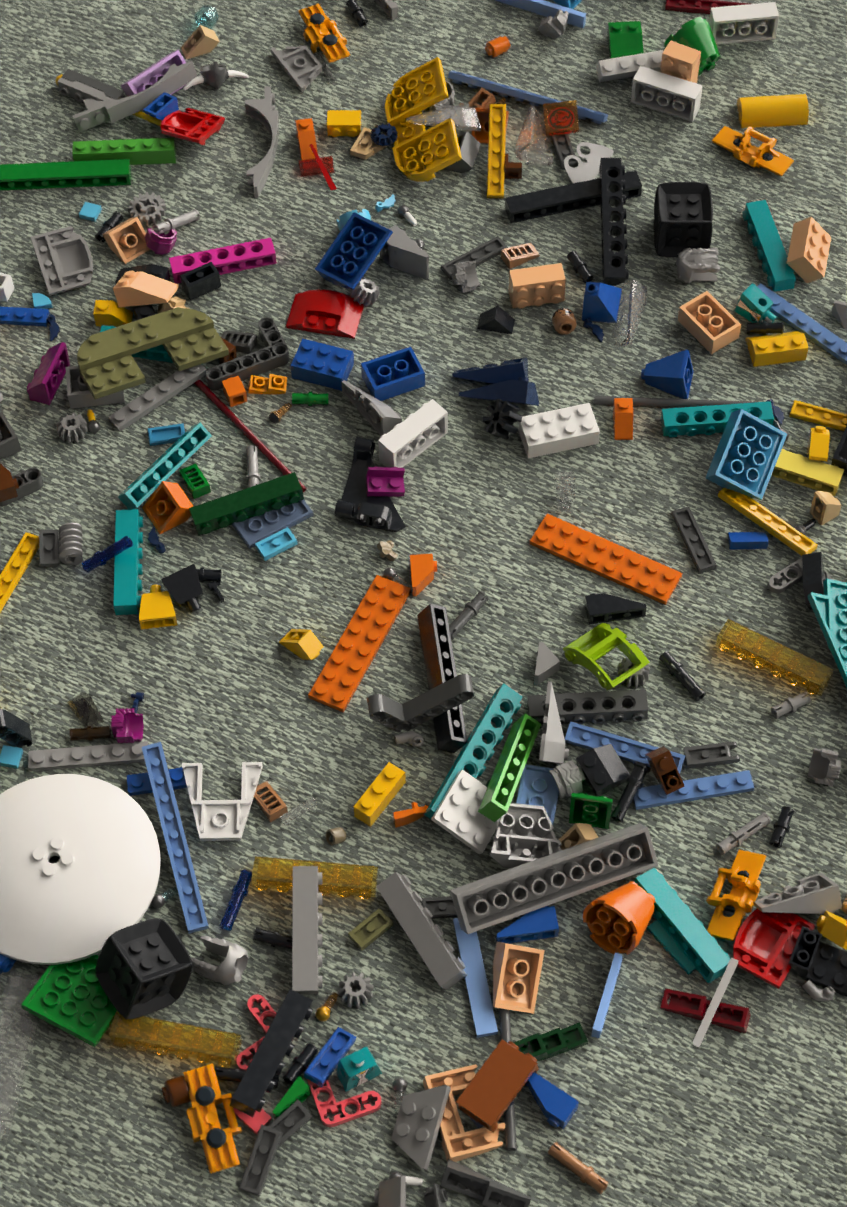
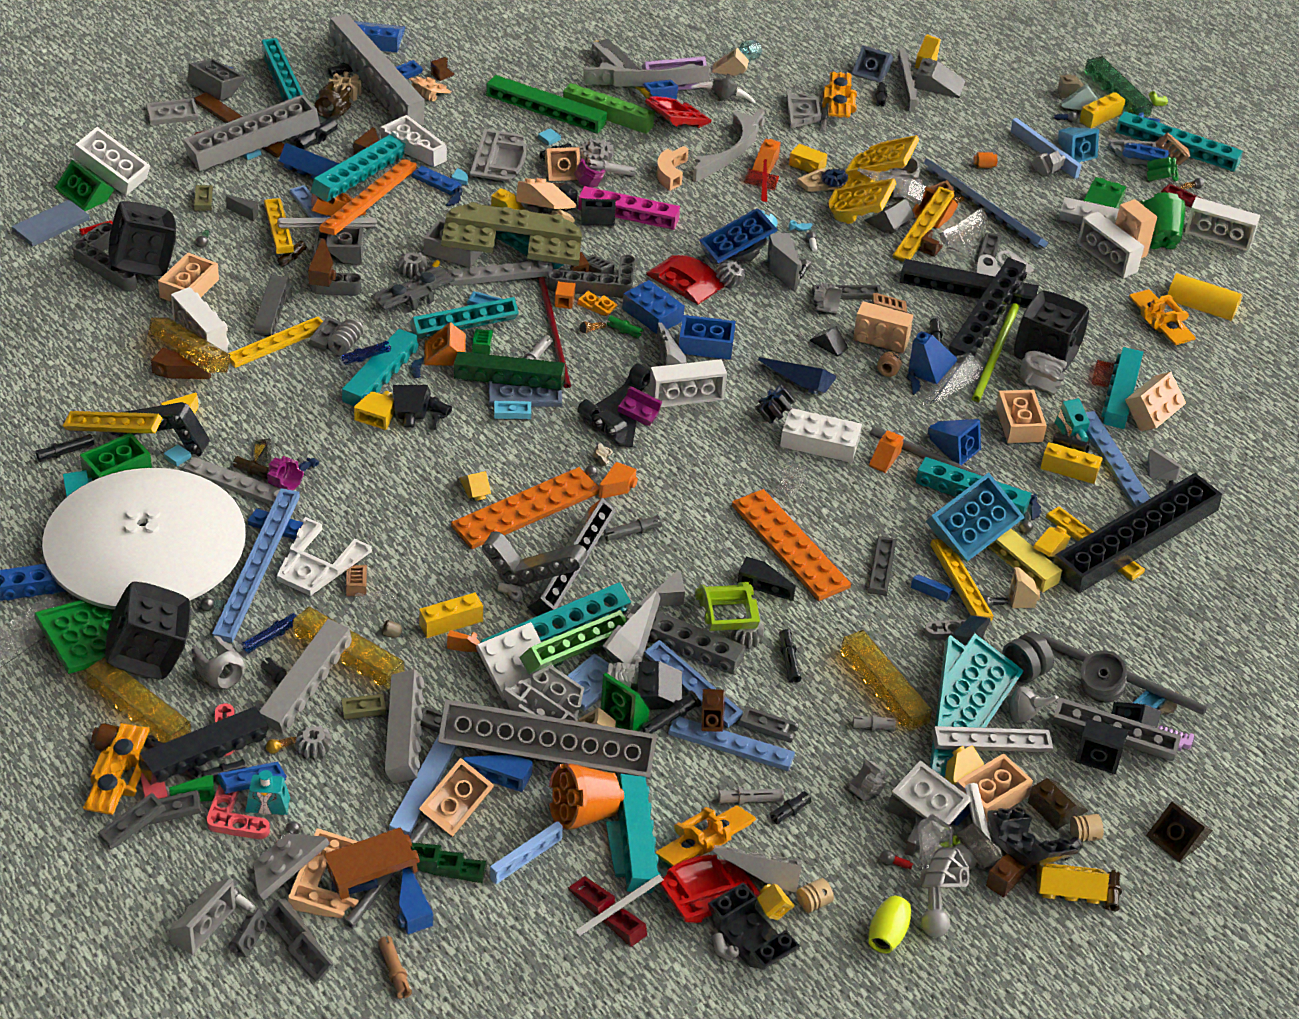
camera: 25 degrees right, 15 degrees down
(49, 374) = (418, 225): magenta slope -> none
(101, 452) = (412, 290): none -> dark grey piece
(226, 201) = (667, 172): none -> light nougat arch
(513, 391) = (801, 387): dark blue wedge -> none
(561, 118) = (1000, 225): clear orange tile -> none
(643, 270) = (977, 395): none -> lime piece
(741, 237) = (1102, 373): none -> clear red tile

